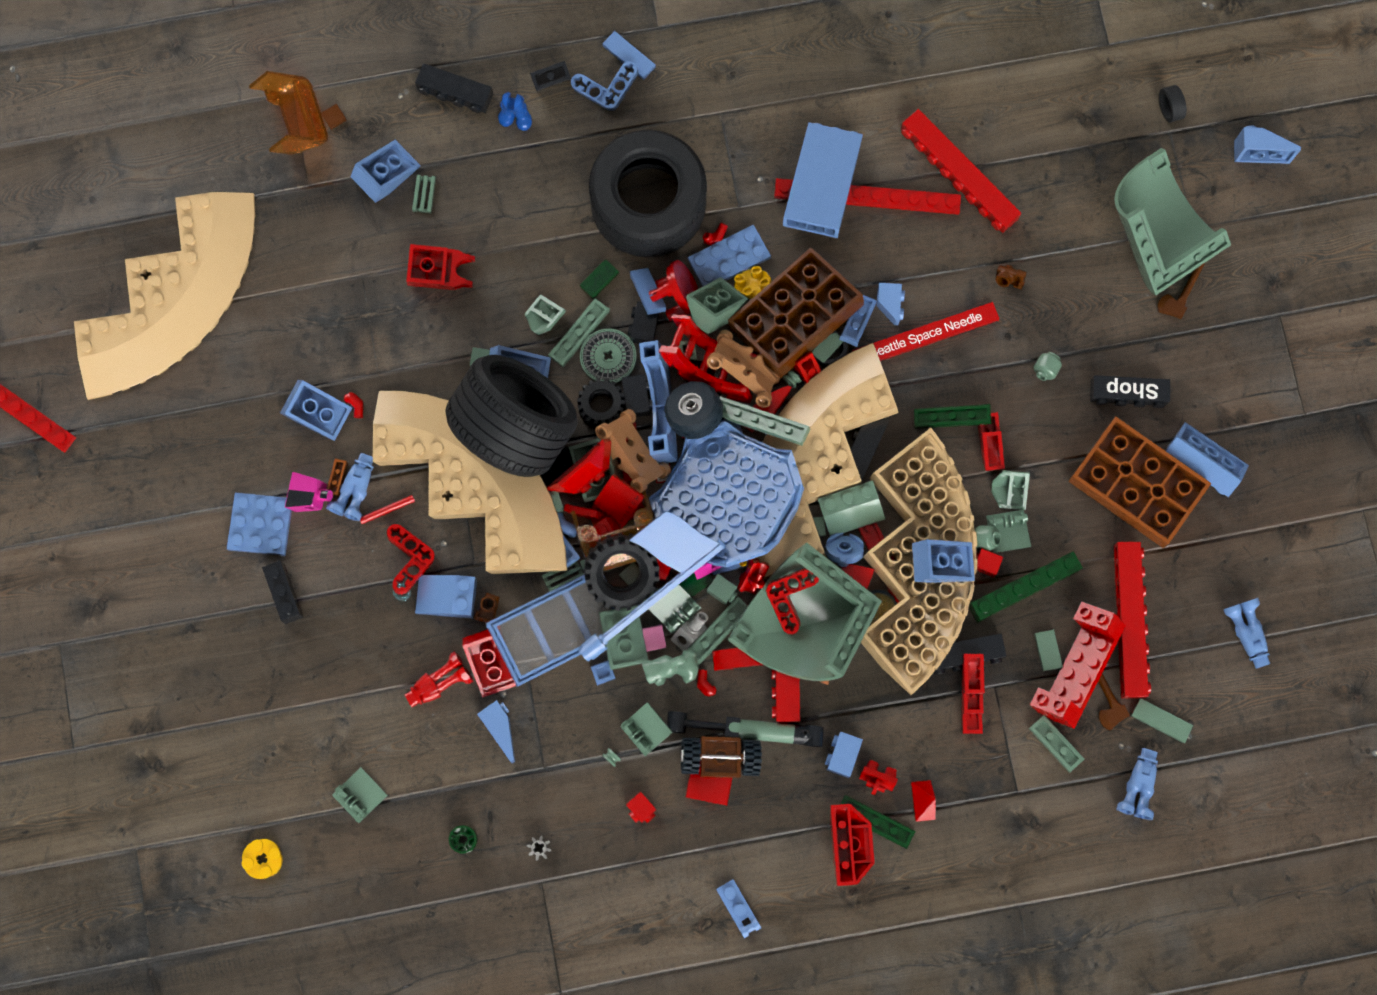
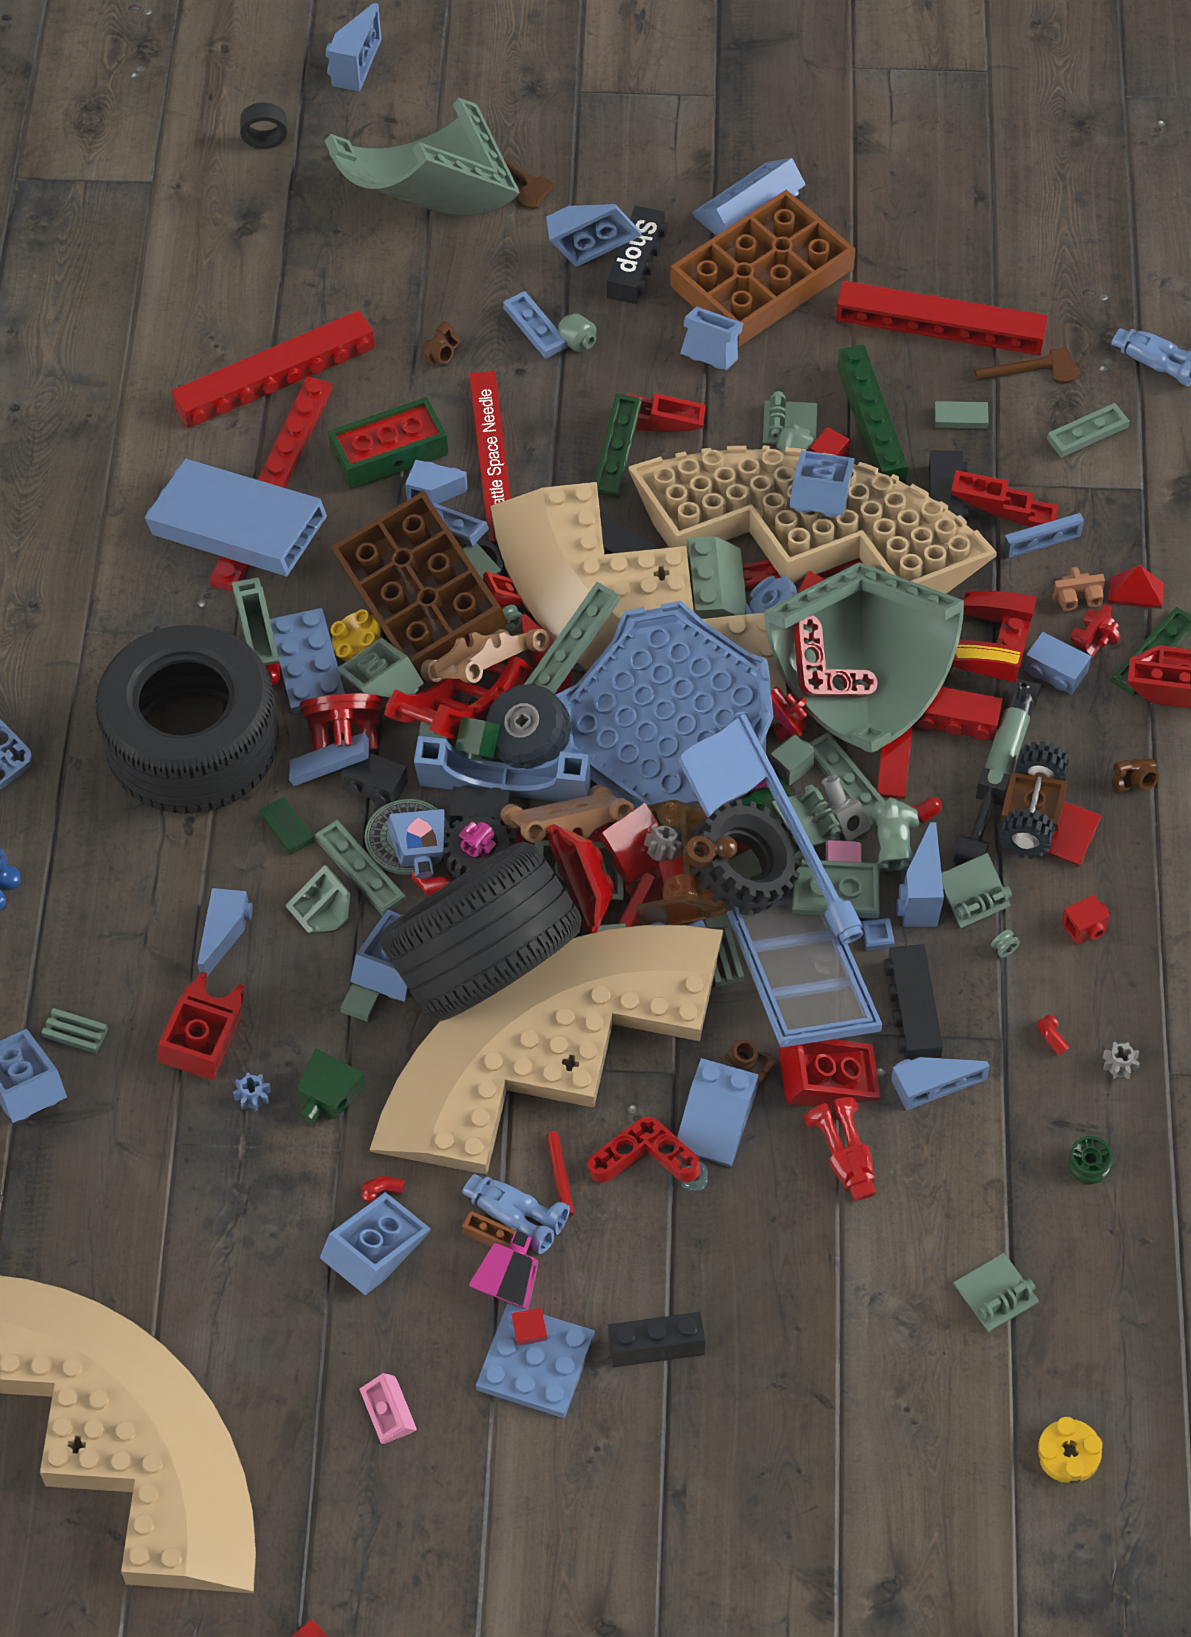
camera: 75 degrees left, 20 degrees down
(213, 446) = (387, 1408): none -> bright pink slope
(273, 514) = (529, 1326): none -> red tile
(401, 304) = (254, 1099): none -> medium blue gear
(414, 353) = (327, 1087): none -> dark green torso
(516, 260) = (223, 926): none -> medium blue slope
(549, 798) = (1052, 1037): none -> red arm
(551, 706) = (914, 1002): none -> black brick
(574, 380) = (431, 884): none -> red arm
(598, 362) = (418, 839): none -> medium blue torso
(600, 399) = (477, 839): none -> dark pink gear
(607, 555) = (724, 848): none -> reddish brown plate
(623, 516) = (662, 843): none -> light grey gear
(637, 693) = (923, 888): none -> medium blue slope
(671, 378) = (477, 738): none -> dark green brick
(742, 216) = (255, 619): none -> sand green slope
(767, 825) = (1134, 773): none -> reddish brown plate
(879, 718) = (1002, 658): none -> red wedge
(906, 752) = (1078, 587): none -> nougat hips
(913, 262) = (388, 442): none -> brick
(951, 726) = (1043, 535): none -> medium blue tile
(1011, 489) = (734, 405): sand green slope -> none
(1047, 335) = (534, 324): none -> medium blue plate
(1061, 459) = (711, 338): none -> medium blue hips
(1082, 667) = (992, 375): plate -> none
(1128, 348) = (589, 231): none -> medium blue slope
(1162, 720) = (1079, 317): sand green tile -> none
(1251, 636) = (983, 203): medium blue piece -> none

